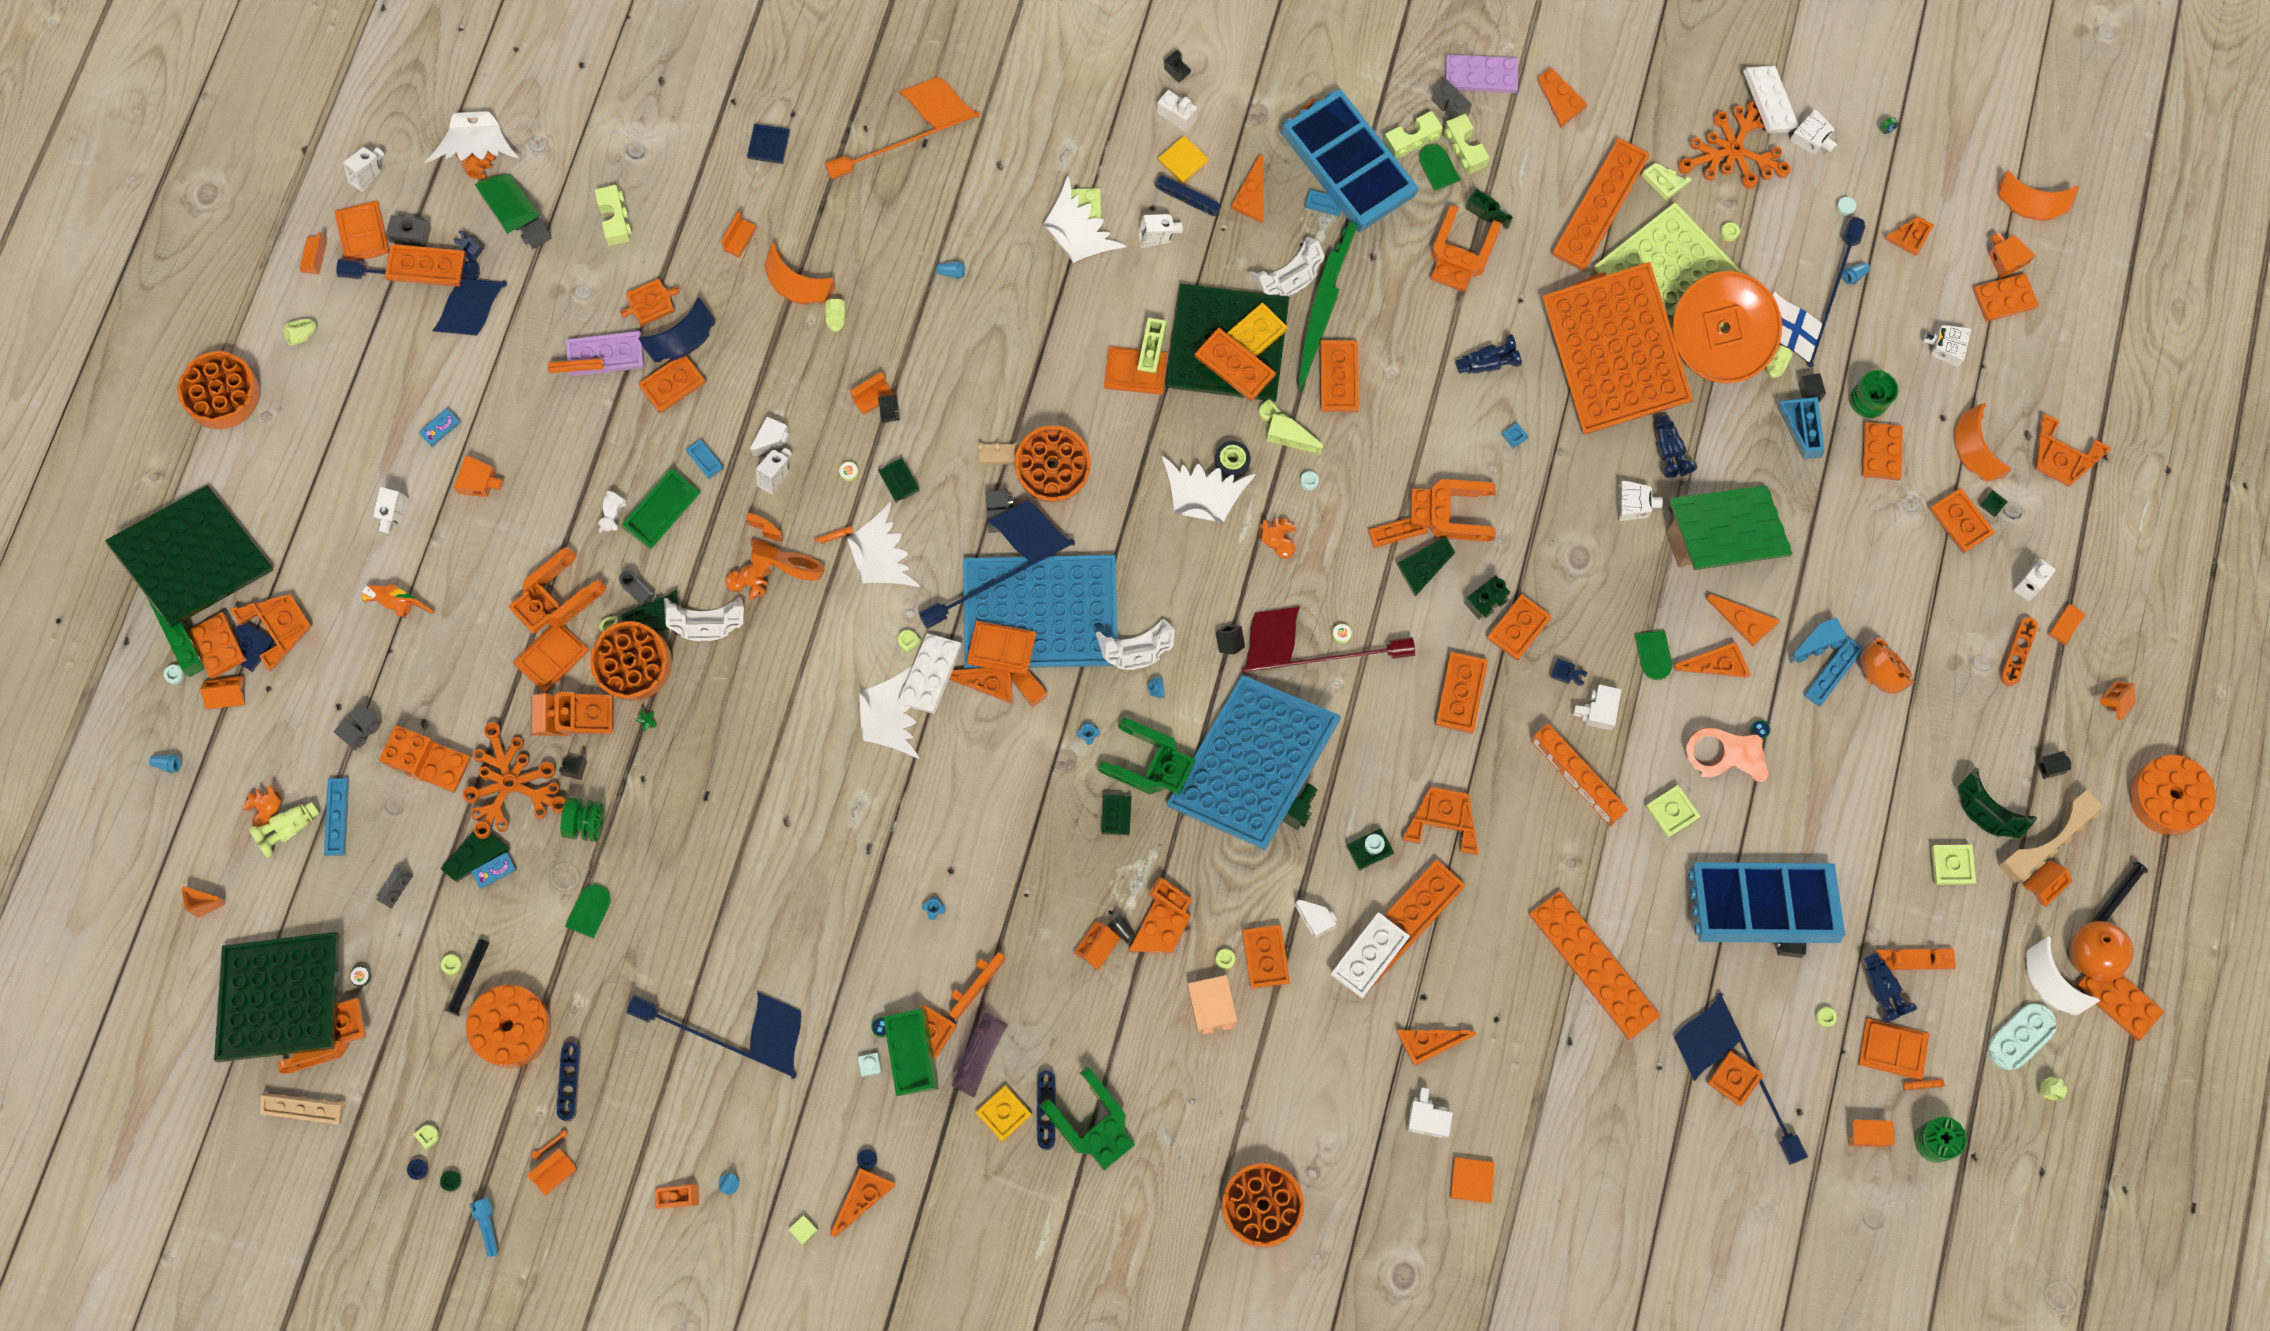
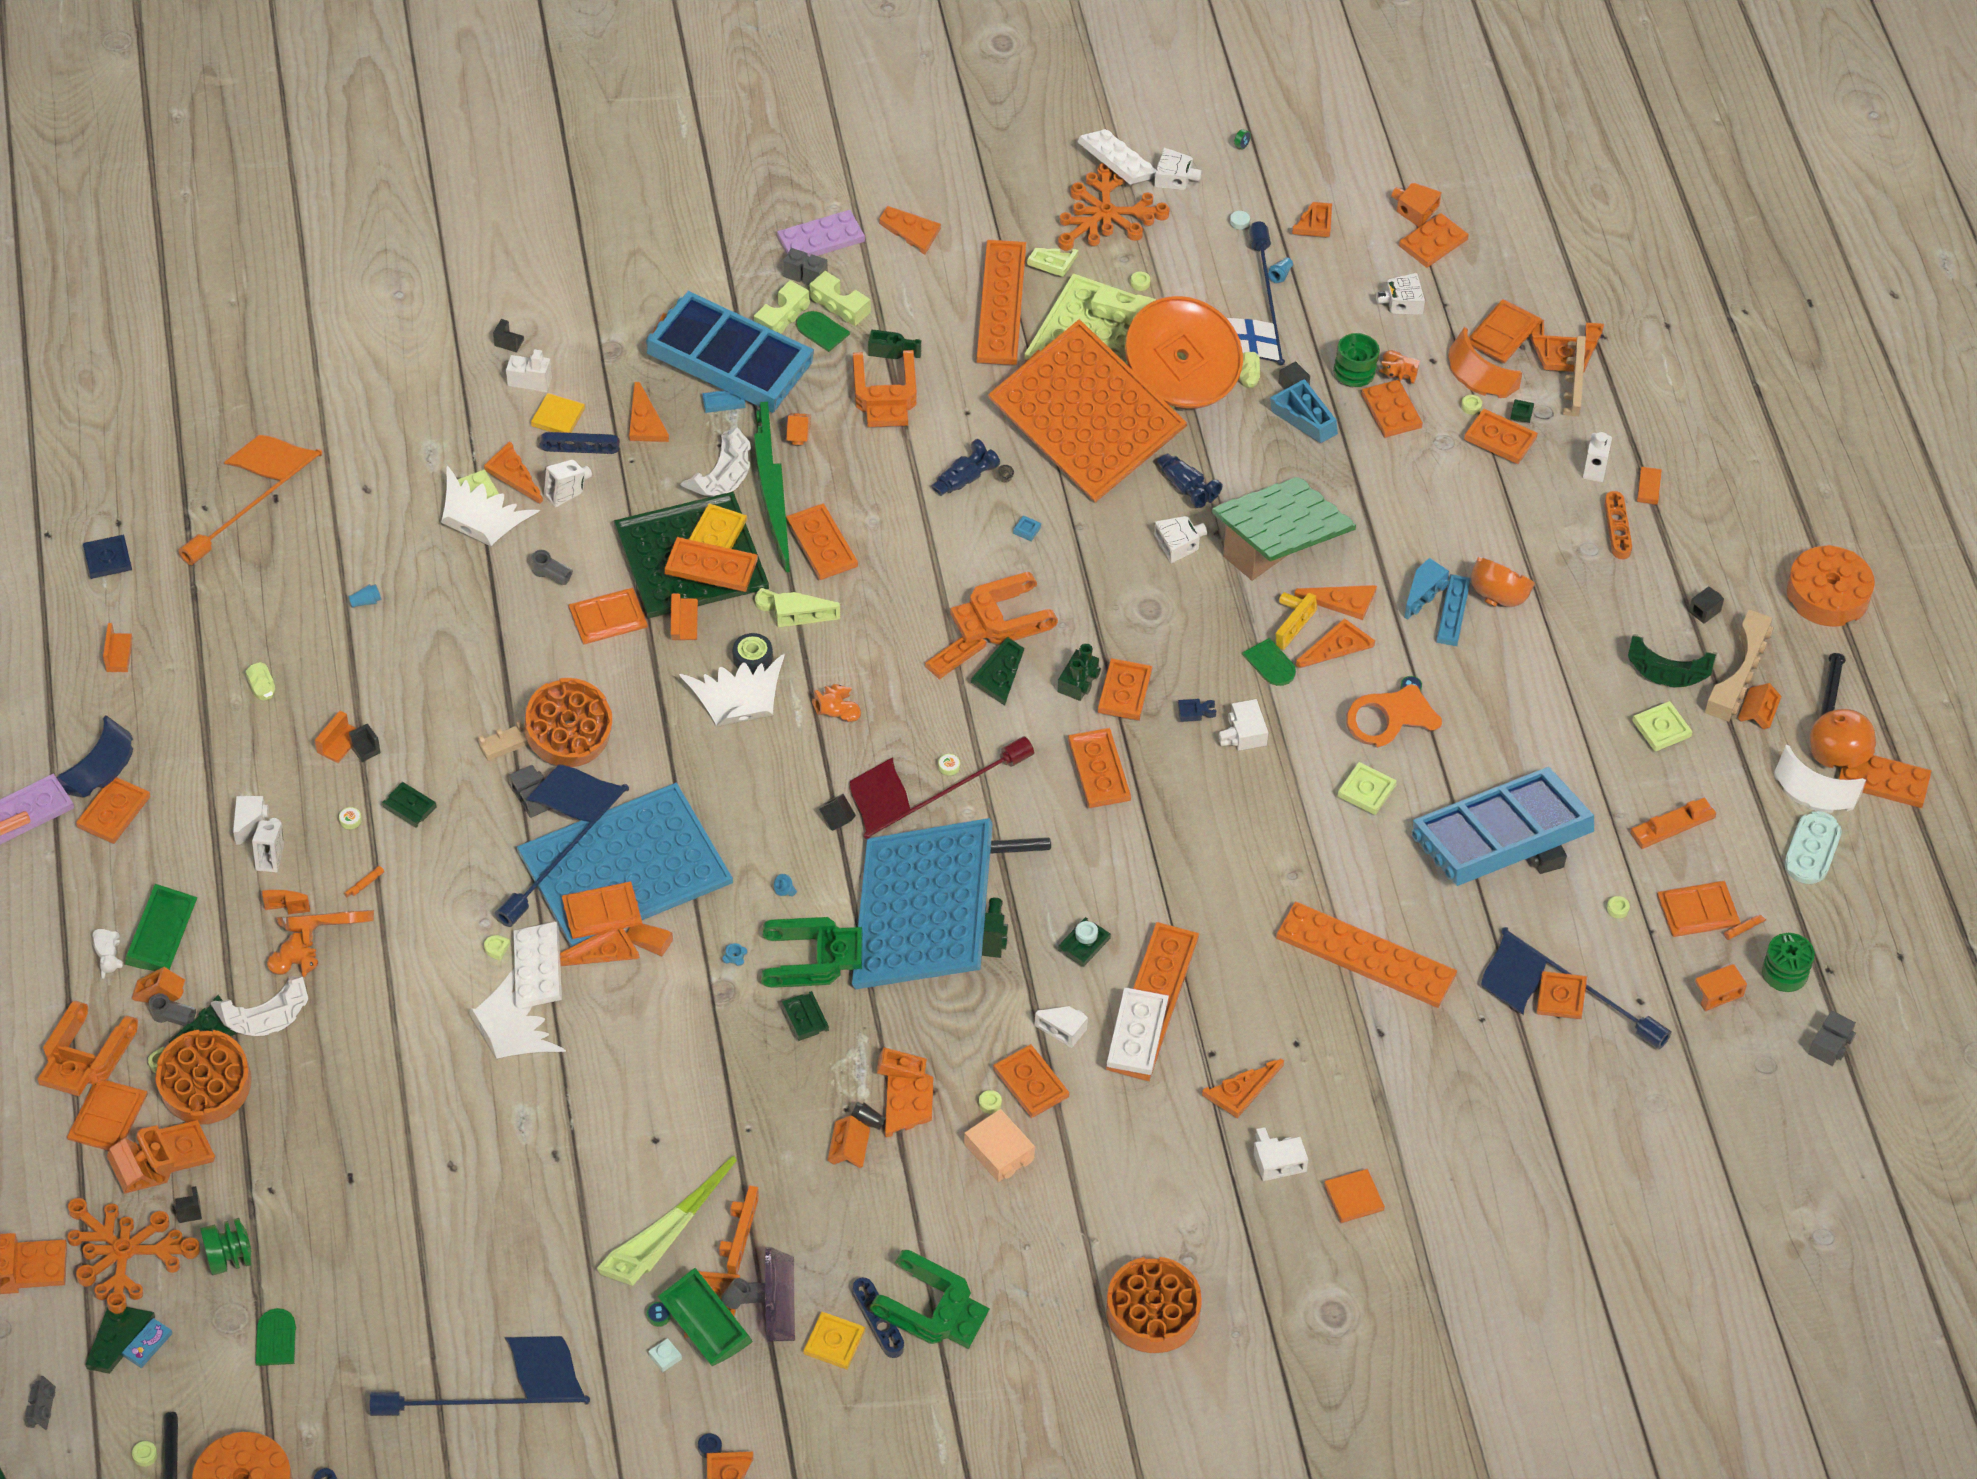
camera: 25 degrees left, 20 degrees down
(636, 562) = (160, 981): none -> orange slope
(646, 720) = (247, 1130): green plant -> none
(650, 302) = (50, 745): orange plate -> none
(704, 459) = (185, 866): dark azure tile -> none
(795, 286) = (201, 671): orange windscreen -> none
(875, 553) = (419, 883): white piece -> none
(893, 968) = (644, 1250): none -> yellowish green plate
(934, 902) = (656, 1173): dark azure plate -> none
(949, 1045) = (742, 1292): none -> dark grey piece
(1110, 307) = (544, 566): none -> dark grey piece
(1120, 197) = (509, 468): none -> orange wing
(1138, 651) = (750, 858): white windscreen -> none
(1152, 345) = (615, 580): yellowish green slope -> none
(1192, 402) = (684, 618): none -> orange panel
(1309, 480) = (841, 644): light aqua tile -> none
(1362, 735) = (1020, 845): none -> black axle
(1372, 257) = (798, 428): none -> orange slope
(1448, 811) = (1142, 877): orange wing -> none
(1521, 371) = (1003, 469): none -> clear smoke hinge
(1579, 775) = (1257, 791): orange brick -> none
(1686, 250) = (1108, 305): none -> yellowish green arch
(1706, 618) = (1303, 611): none -> yellow piece
(1885, 986) = (1659, 855): dark blue piece -> none
(1909, 413) = (1399, 365): none -> orange animal
(1940, 1225) = (1831, 1040): none -> dark grey piece
(1953, 476) = (1471, 404): none -> yellowish green tile
(2019, 416) = (1504, 331): none -> orange piece
(2032, 202) = (1413, 153): orange windscreen -> none
(2053, 1089) = (1868, 877): yellowish green rock -> none
(2059, 492) = (1576, 378): none -> tan hinge
(2119, 698) = (1734, 525): orange panel -> none

